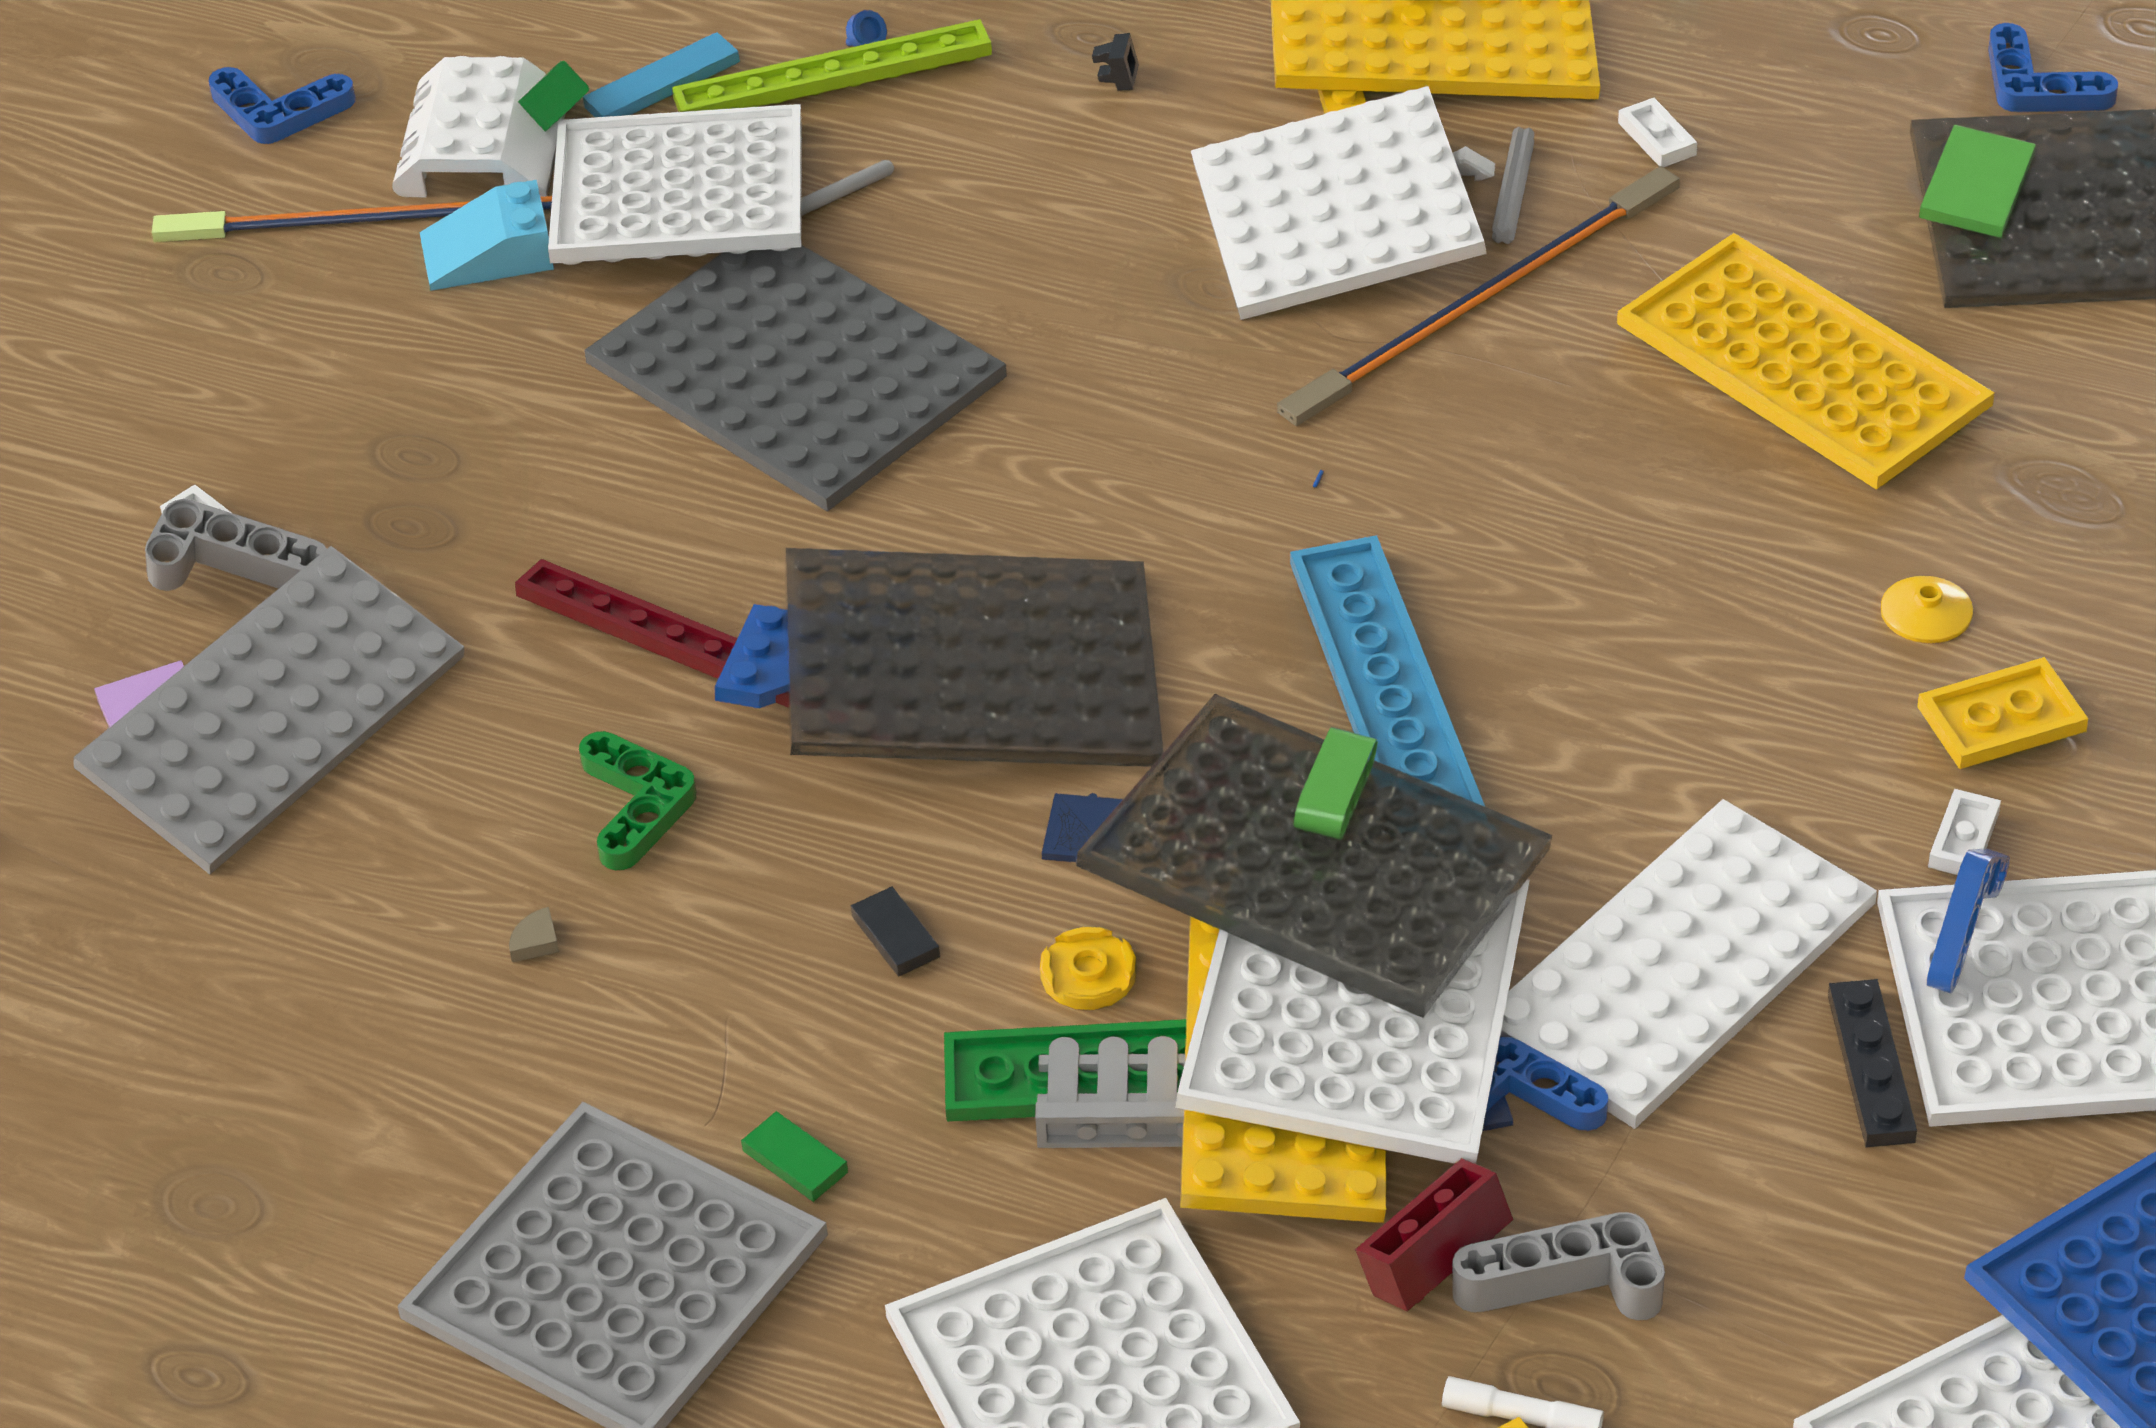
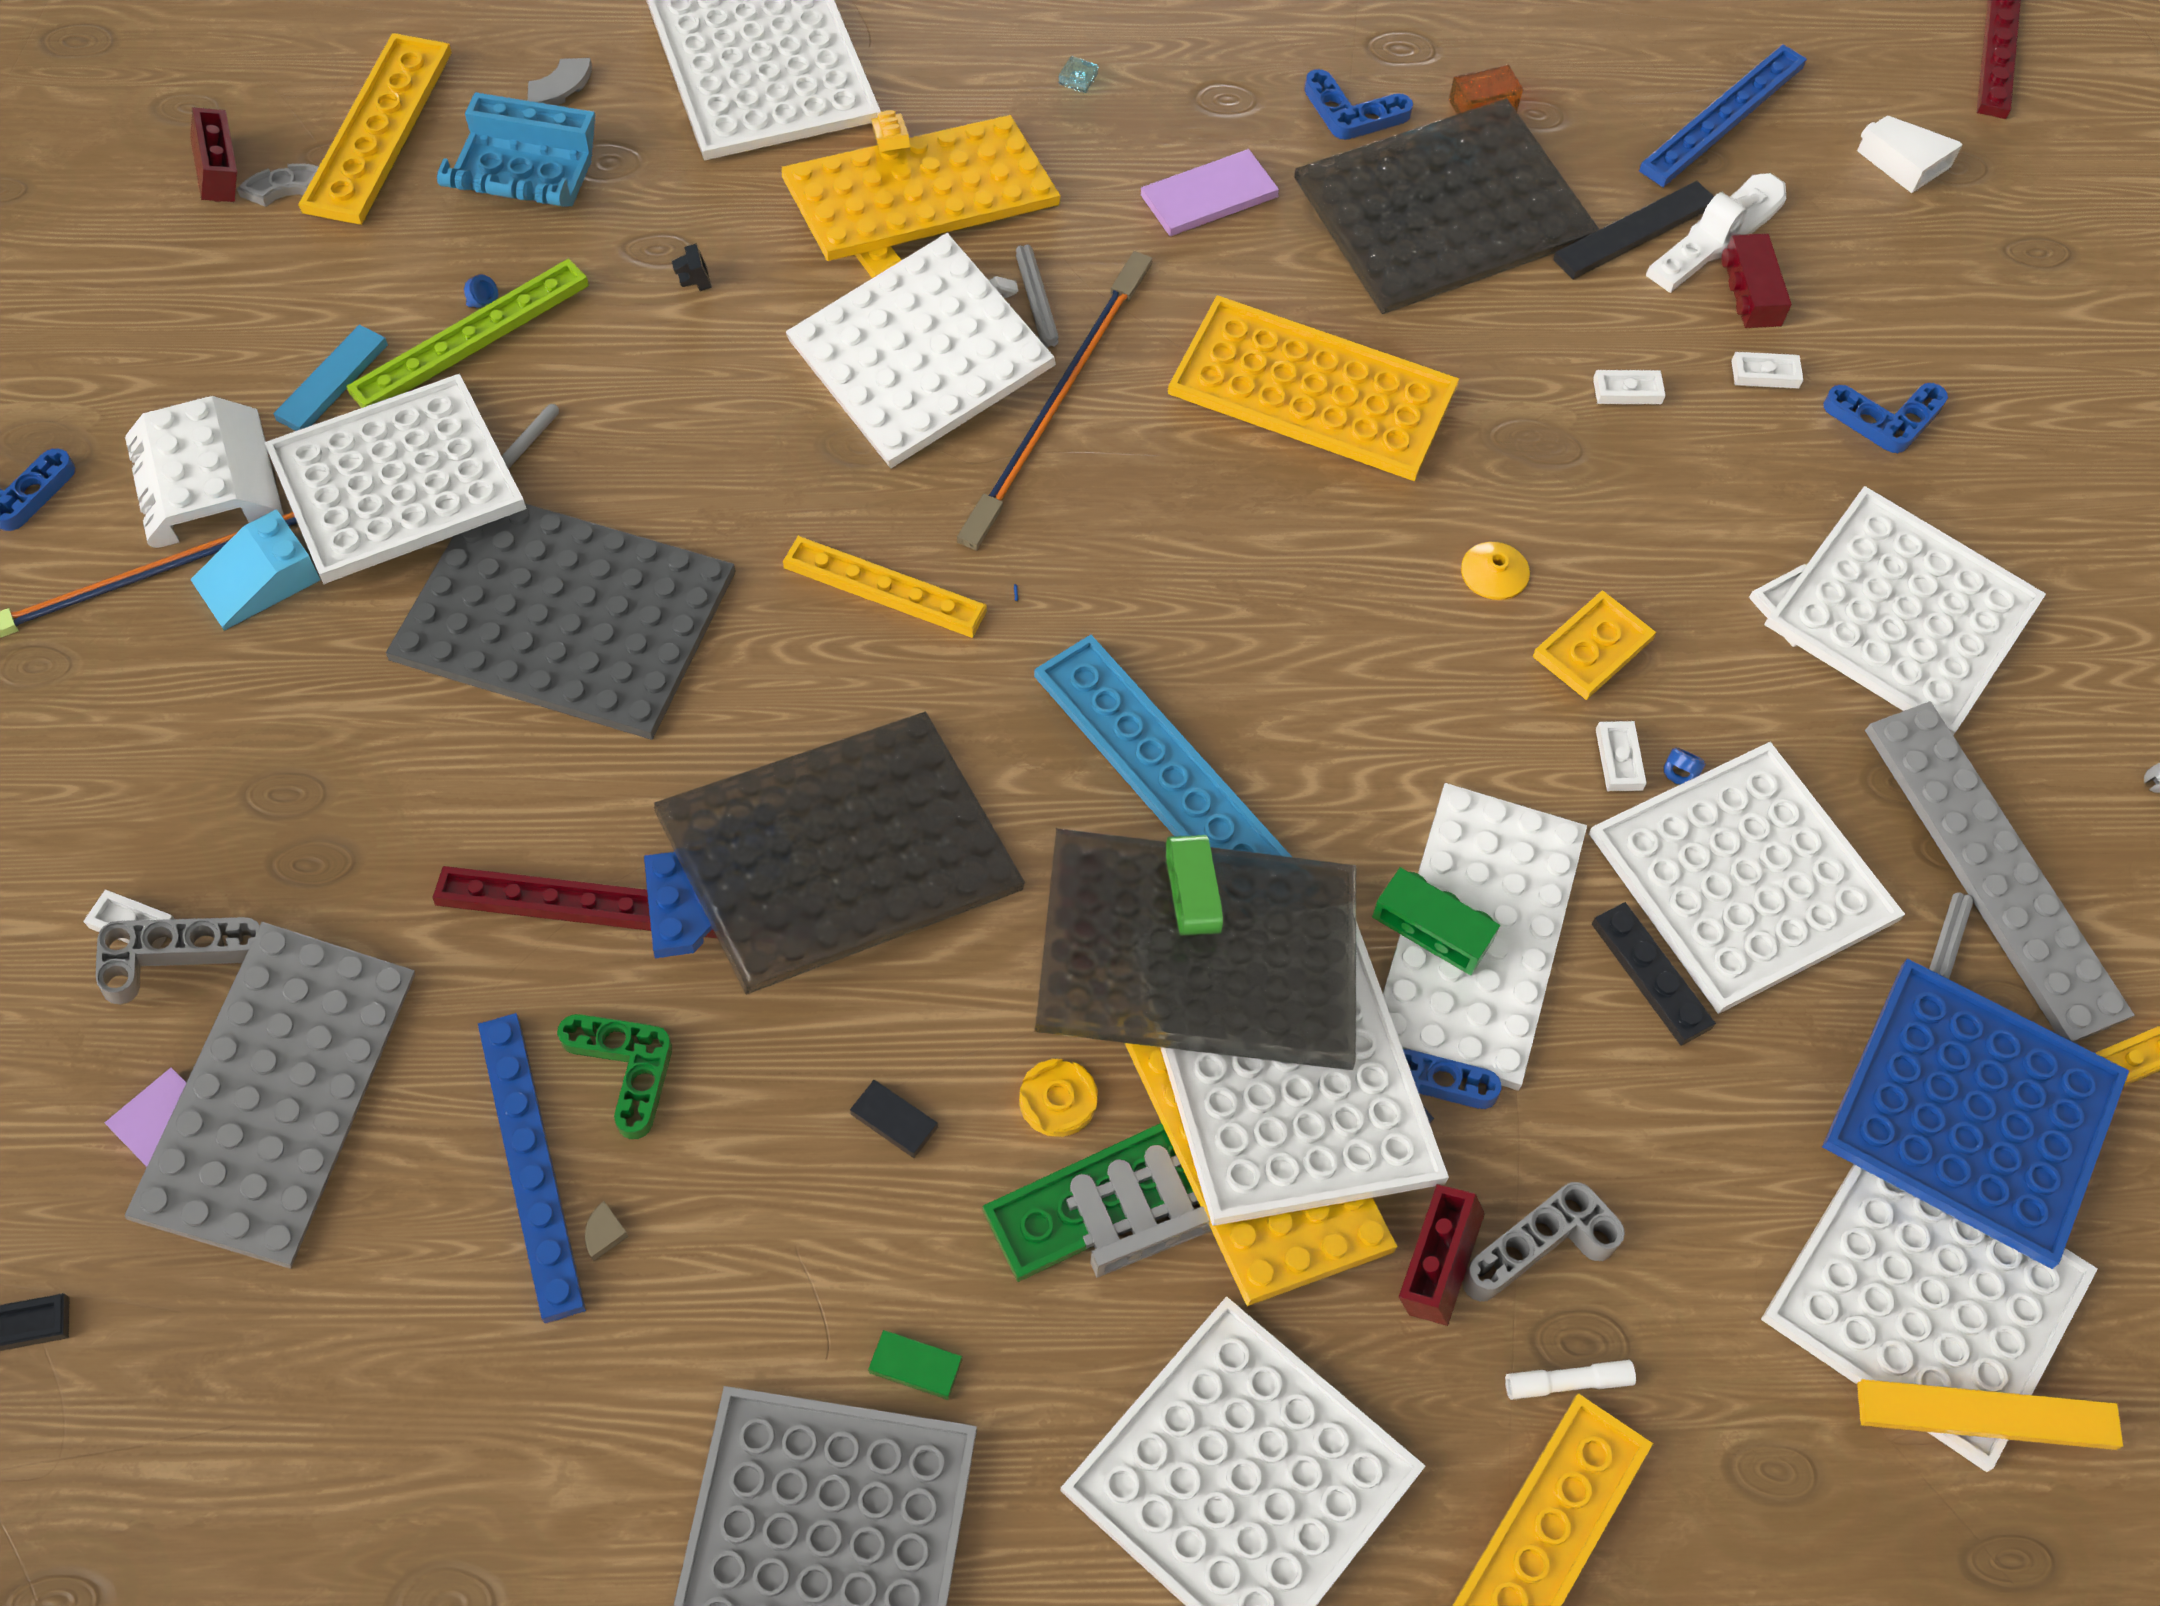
camera: 30 degrees left, 15 degrees up
(491, 859) = (531, 1169): none -> blue plate
(554, 95) = (252, 421): green slope -> none
(1073, 822) = (995, 968): dark blue piece -> none
(1168, 432) = (885, 586): none -> yellow tile
(1617, 916) = (1435, 920): none -> green brick
(1657, 132) = (1119, 223): white plate -> none
(1795, 127) = (1209, 192): none -> lavender tile
(1977, 181) = (1368, 208): bright green tile -> none
(1978, 878) = (1684, 809): blue beam -> none
(2042, 859) = (1684, 761): none -> blue tile

